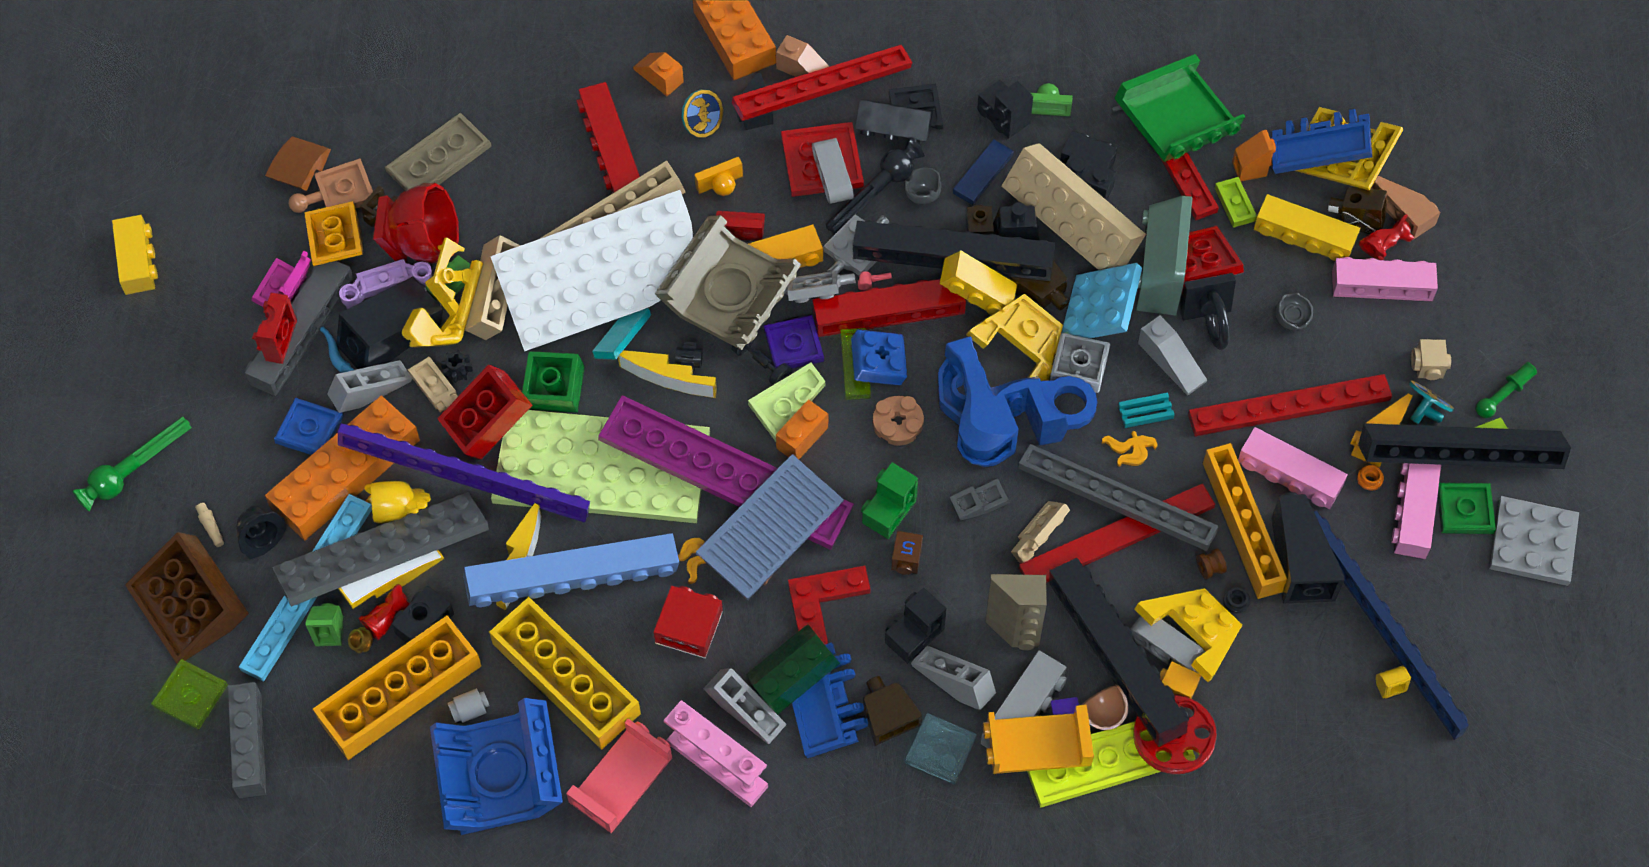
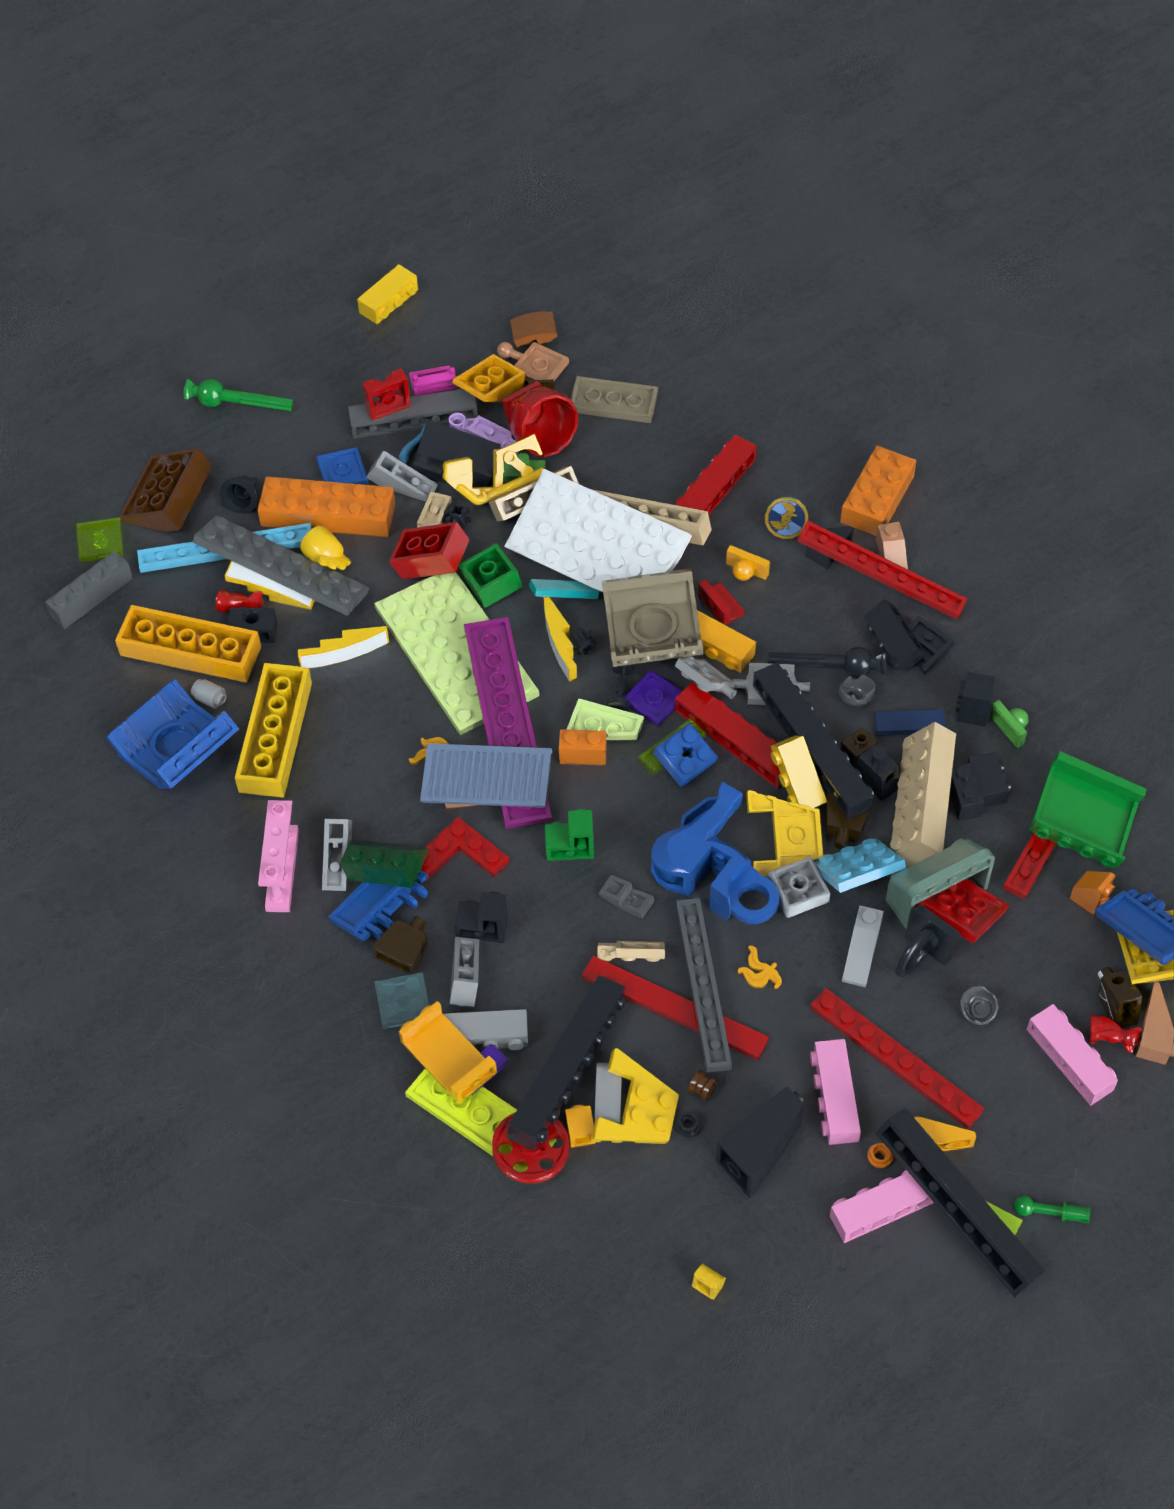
camera: 55 degrees right, 5 degrees down
(207, 519) = (230, 466): tan animal -> none
(325, 625) = (203, 574): bright green slope -> none
(360, 640) = (208, 602): pearl gold plate -> none
(462, 472) = (374, 575): dark purple plate -> none
(570, 570) = (352, 680): medium blue brick -> none
(621, 776) = (223, 817): coral panel -> none
(661, 71) = (800, 475): orange slope -> none
(688, 621) = (374, 777): red piece -> none
(800, 162) = (821, 615): red plate -> none
(832, 170) = (811, 624): light grey beam -> none
(866, 279) = (747, 707): coral hand -> none
(898, 406) = (648, 790): nougat plate -> none
(907, 552) = (540, 876): reddish brown brick -> none
(1017, 608) = (540, 969): dark tan slope -> none
(1107, 708) = (512, 1085): nougat helmet -> none
(1130, 408) = (779, 953): teal tile -> none
(1235, 202) = (1044, 905): lime plate -> none
(1244, 521) = (758, 1079): light orange brick -> none
(1306, 228) = (1065, 969): yellow brick -> none
(1394, 636) = (751, 1253): dark blue plate -> none
(1425, 406) = (988, 1156): teal shield -> none
(1430, 359) = (1028, 1133): tan brick -> none
(1466, 508) = (915, 1245): green tile -> none
(1534, 540) = (930, 1316): light grey plate -> none

